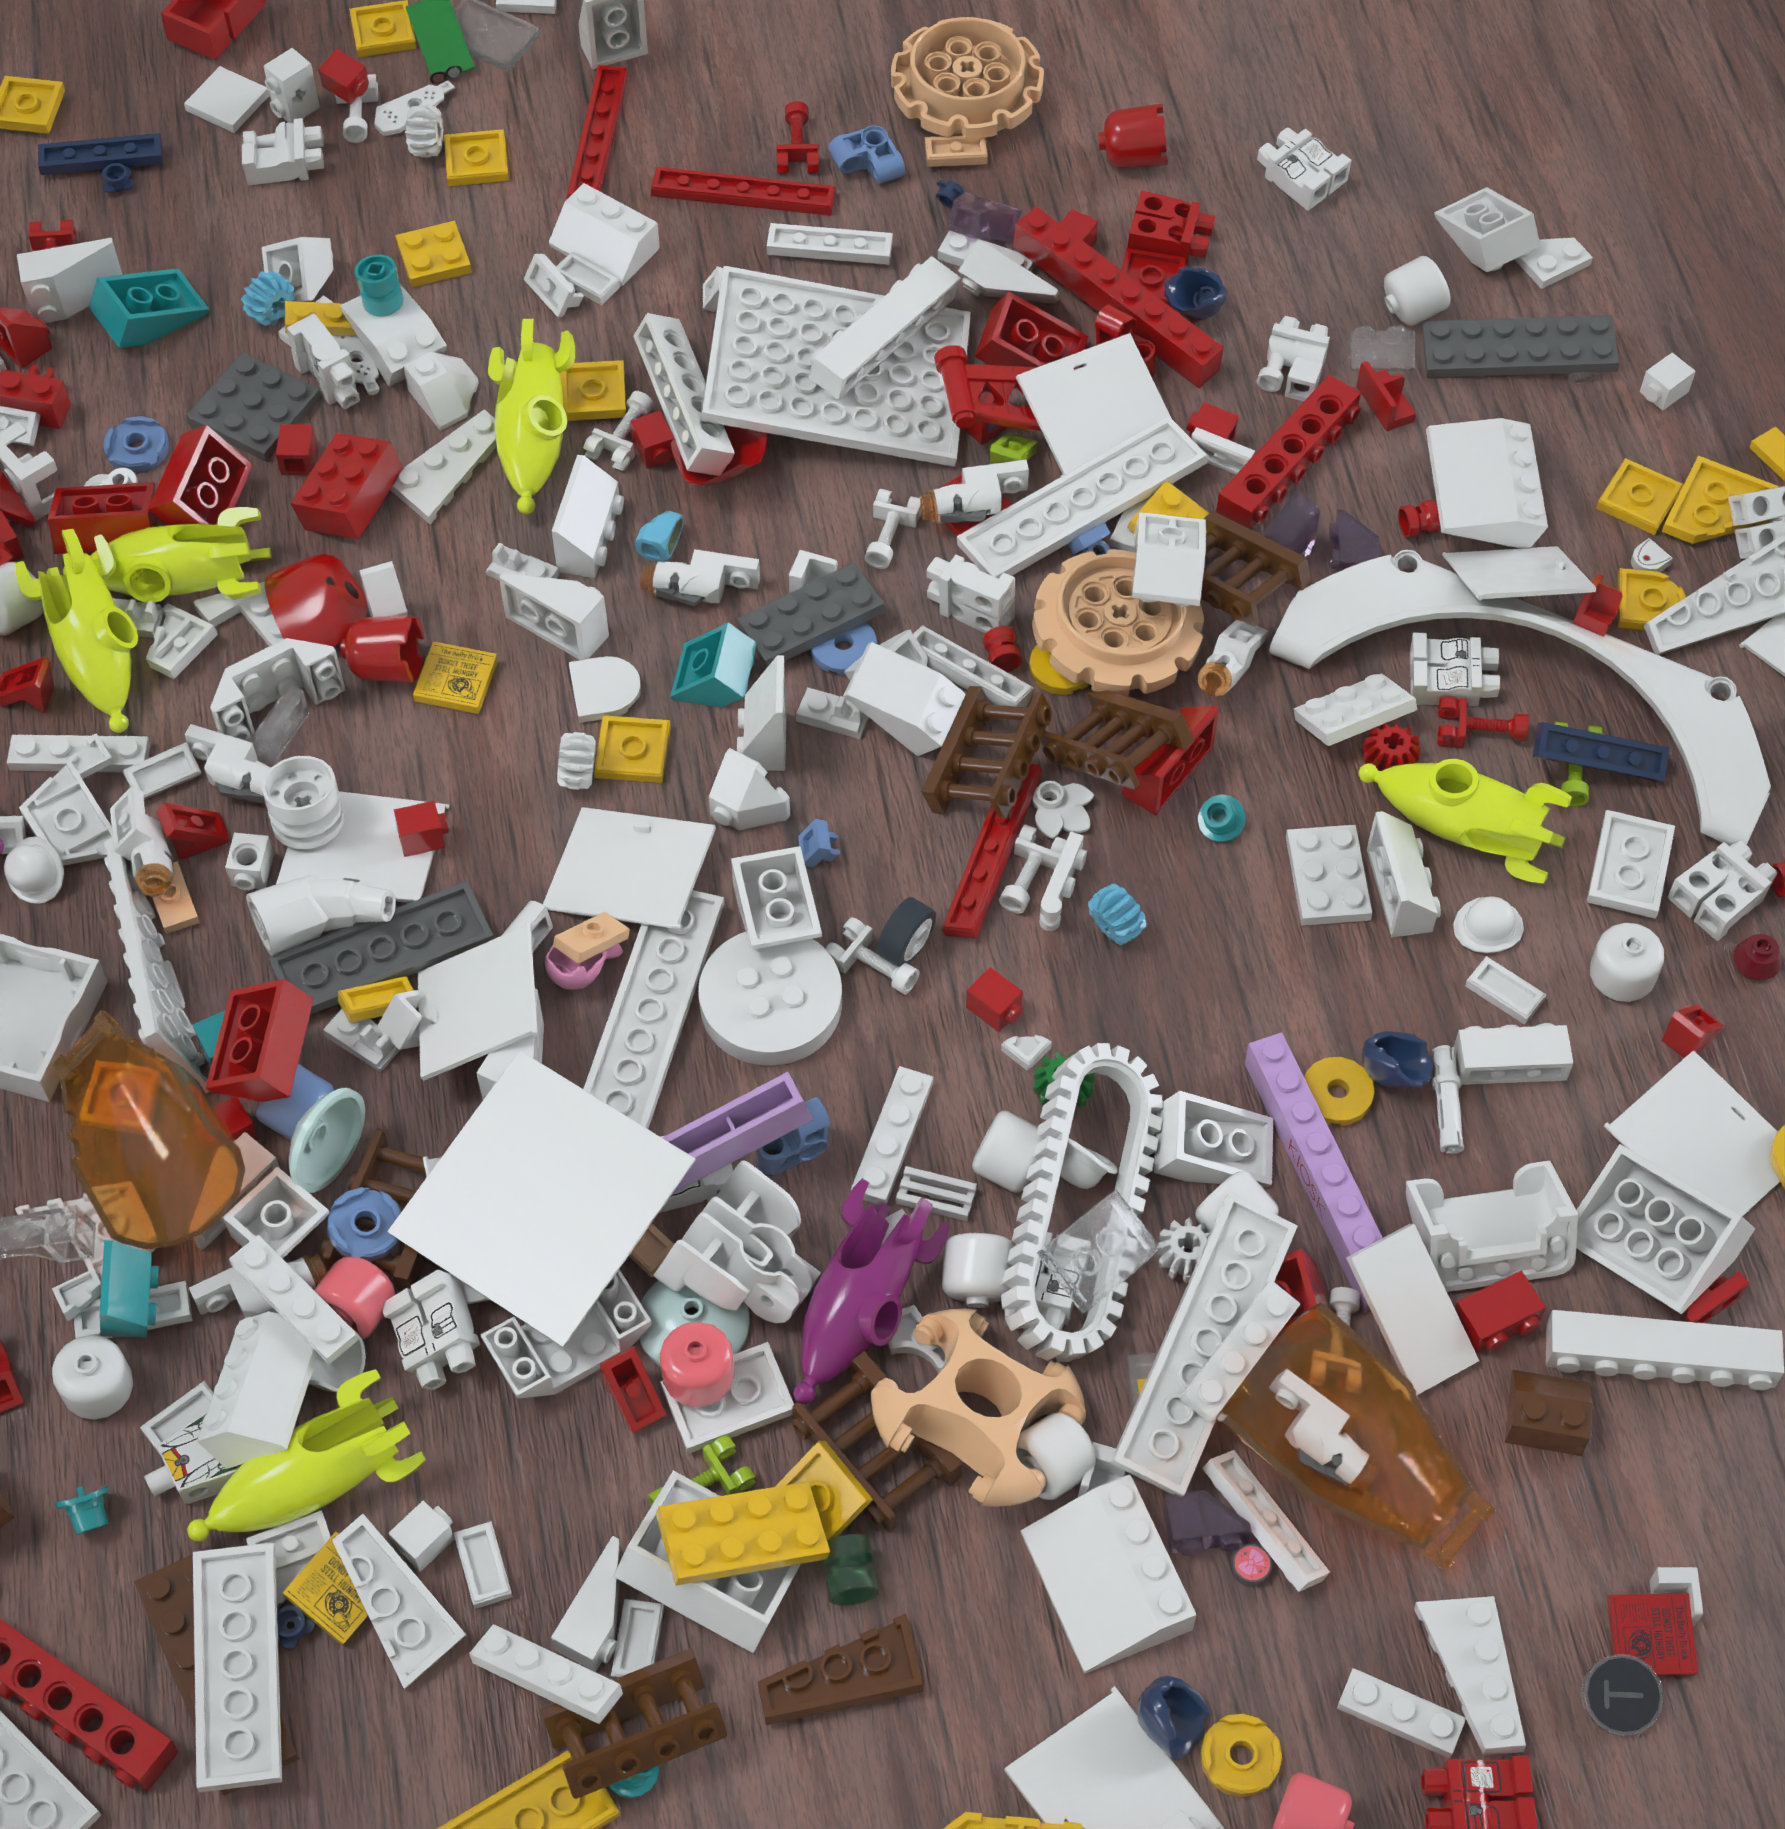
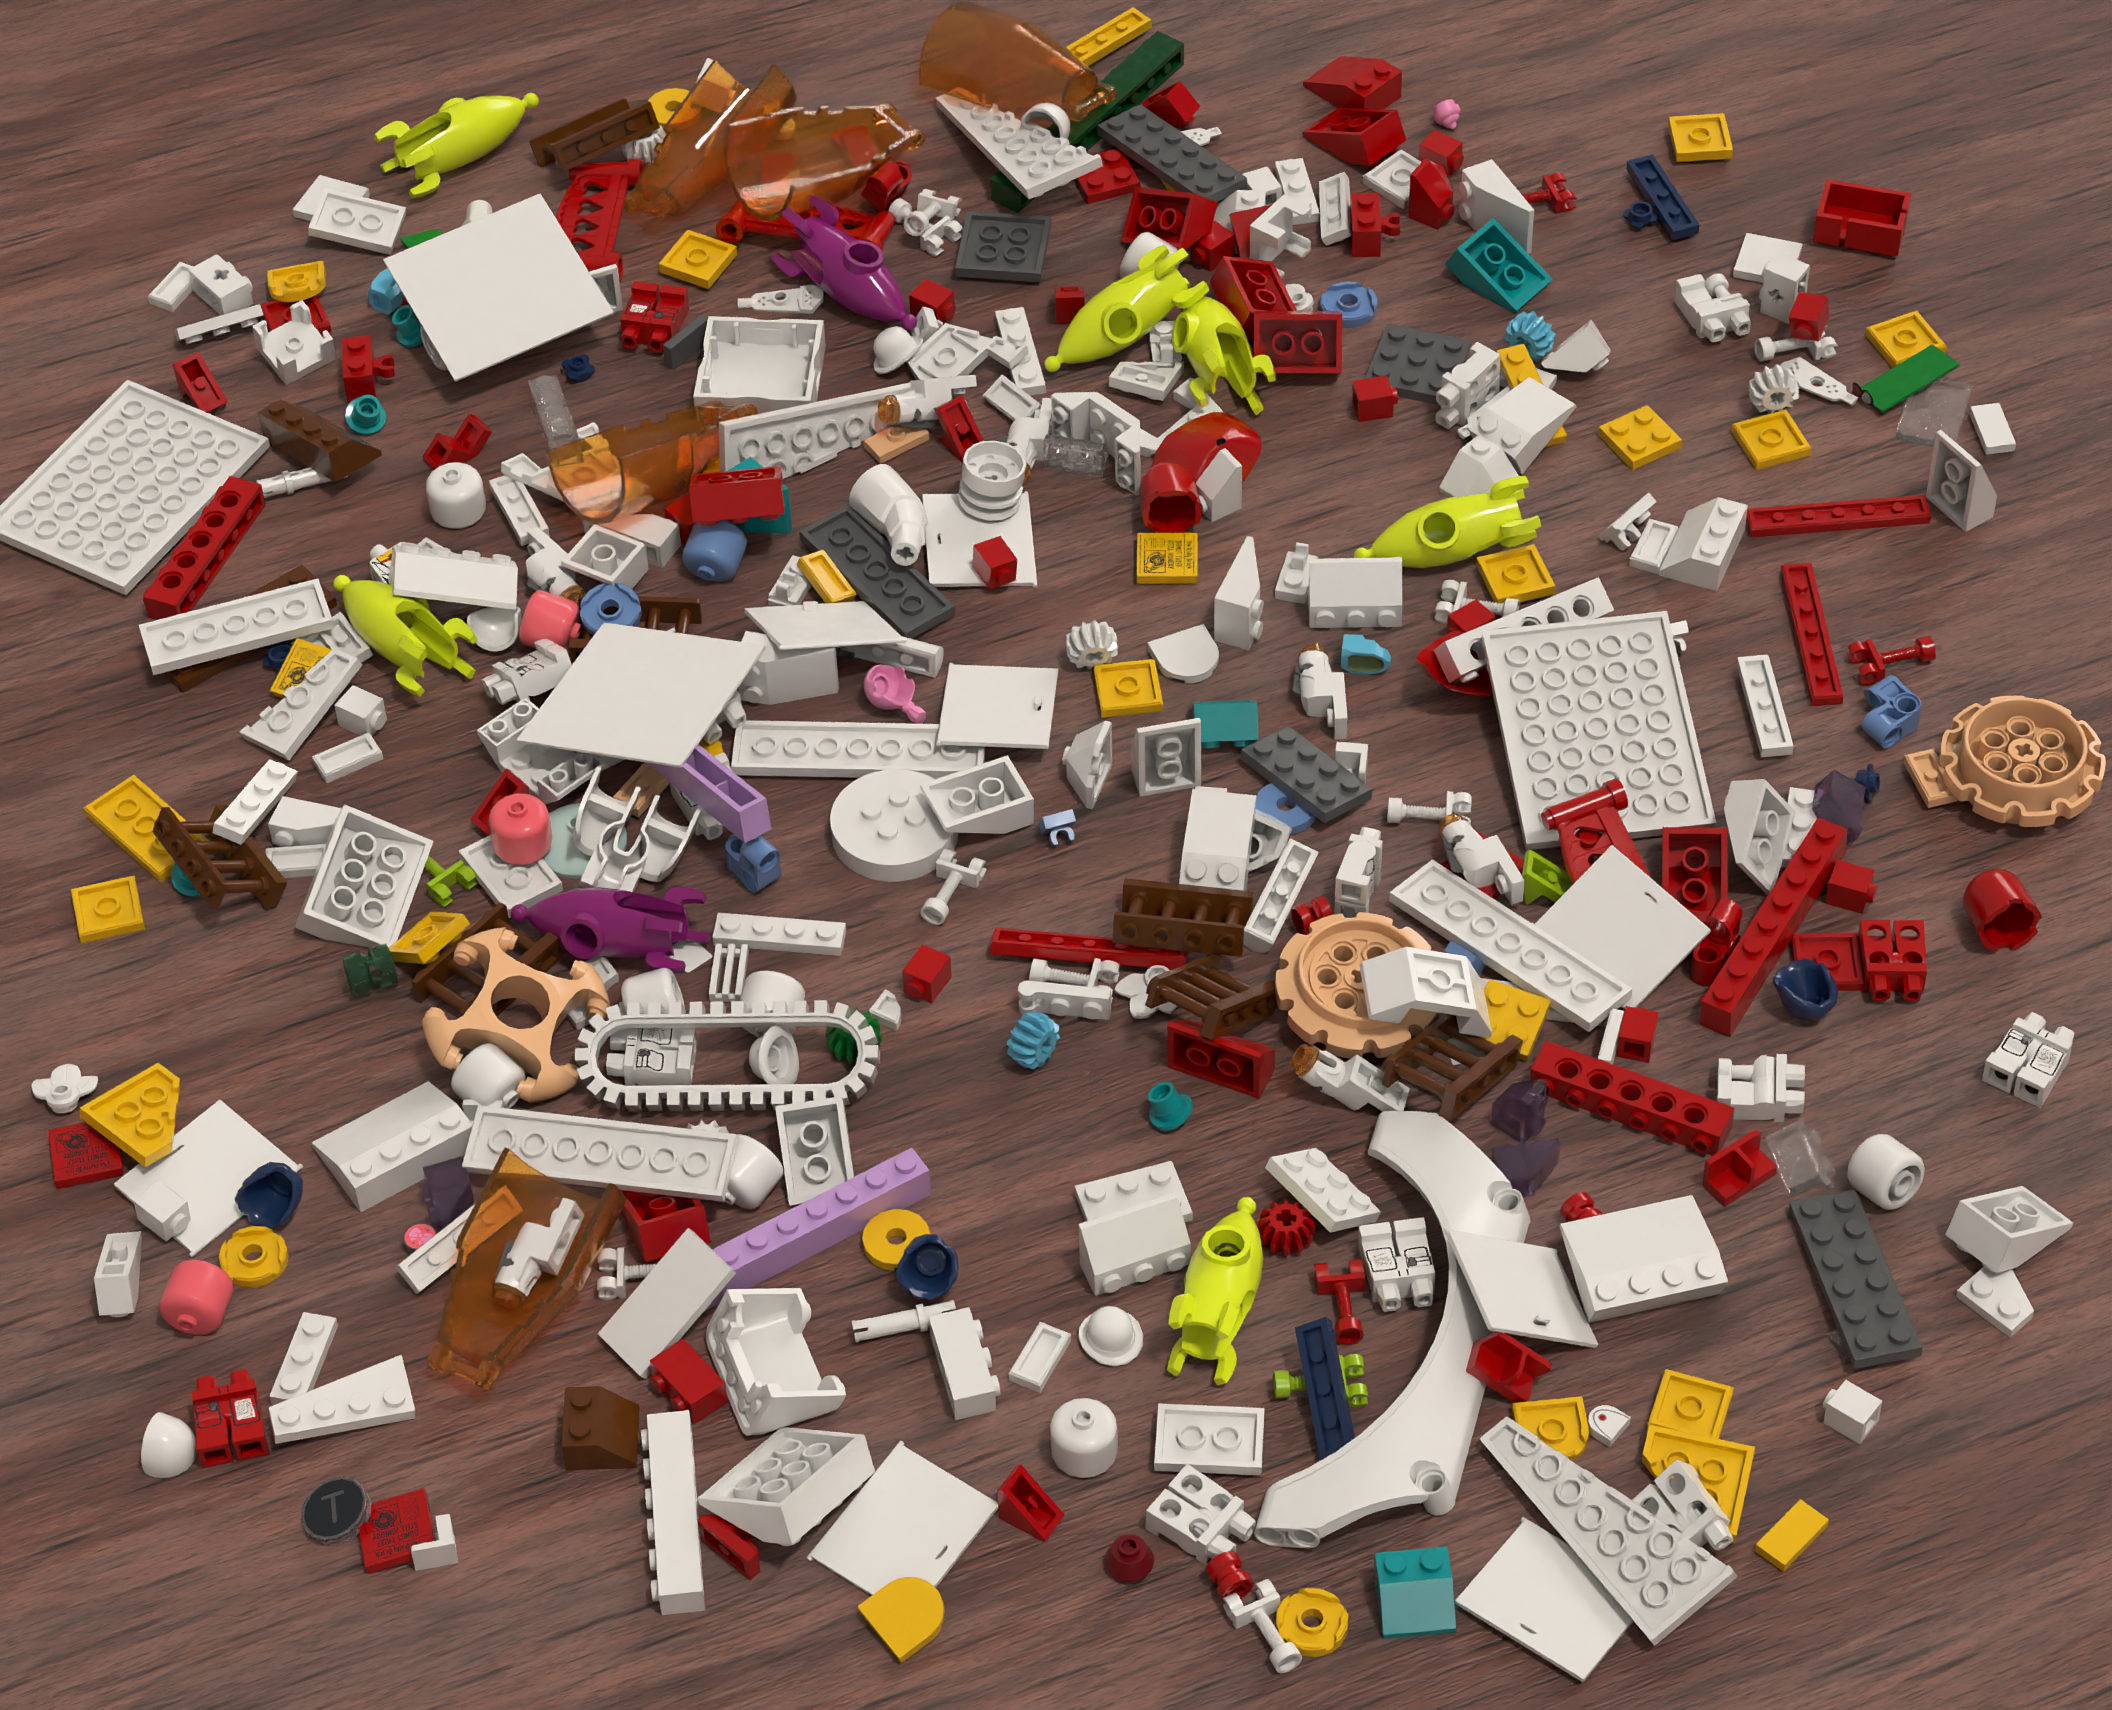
camera: 80 degrees right, 10 degrees down
(86, 1511) = (351, 522): teal piece -> none
(126, 1291) = (516, 480): teal slope -> none
(245, 850) = (938, 472): white brick -> none
(293, 1299) = (527, 577): white plate -> none
(326, 1139) = (673, 564): light aqua dish -> none
(347, 485) = (1338, 435): red brick -> none
(379, 285) = (1545, 385): teal wheel -> none
(402, 1020) = (808, 590): white panel -> none
(438, 472) = (1380, 494): white wing -> none
(591, 937) = (911, 688): light nougat plate -> none
(742, 1533) = (375, 880): yellow plate -> none
(856, 1674) = (284, 990): reddish brown wing -> none
(883, 327) = (1646, 745): white brick -> none
(906, 932) = (973, 894): black wheel -> none
(1099, 1251) = (672, 1067): clear tile -> none
(1239, 1351) = (592, 1172): white plate -> none

